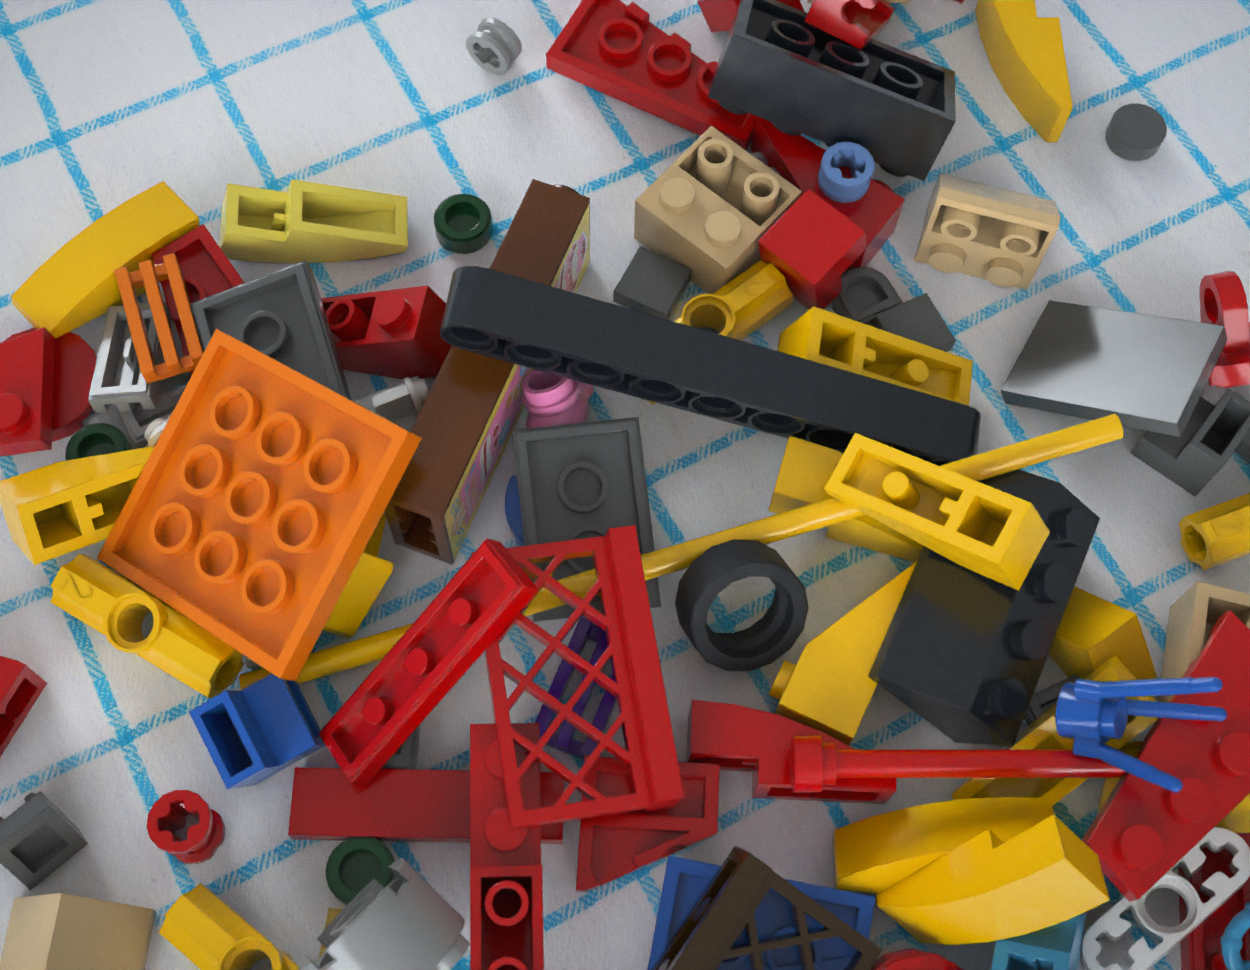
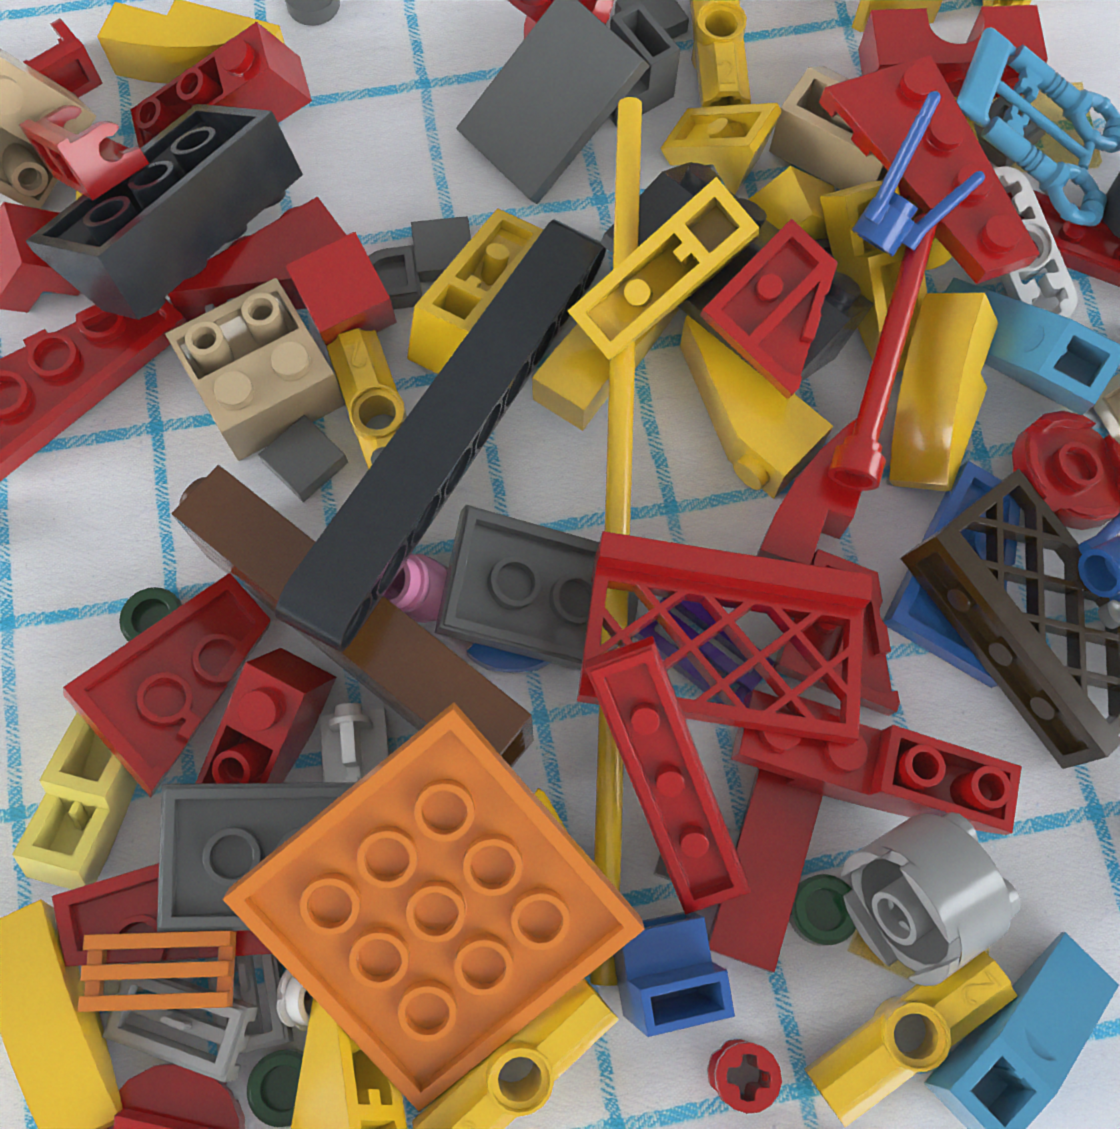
camera: 70 degrees left, 5 degrees up
(395, 238) = (168, 679): none -> red wing
(766, 638) = (657, 486): black tyre -> none
(860, 165) = (266, 217): medium blue bush -> none
(946, 628) = (775, 306): none -> red wing
(986, 231) = (372, 144): tan slope -> none
(995, 101) = (243, 73): none -> red slope
(998, 888) = (1007, 354): yellow slope -> none
(1150, 551) = (723, 136): none -> yellow slope

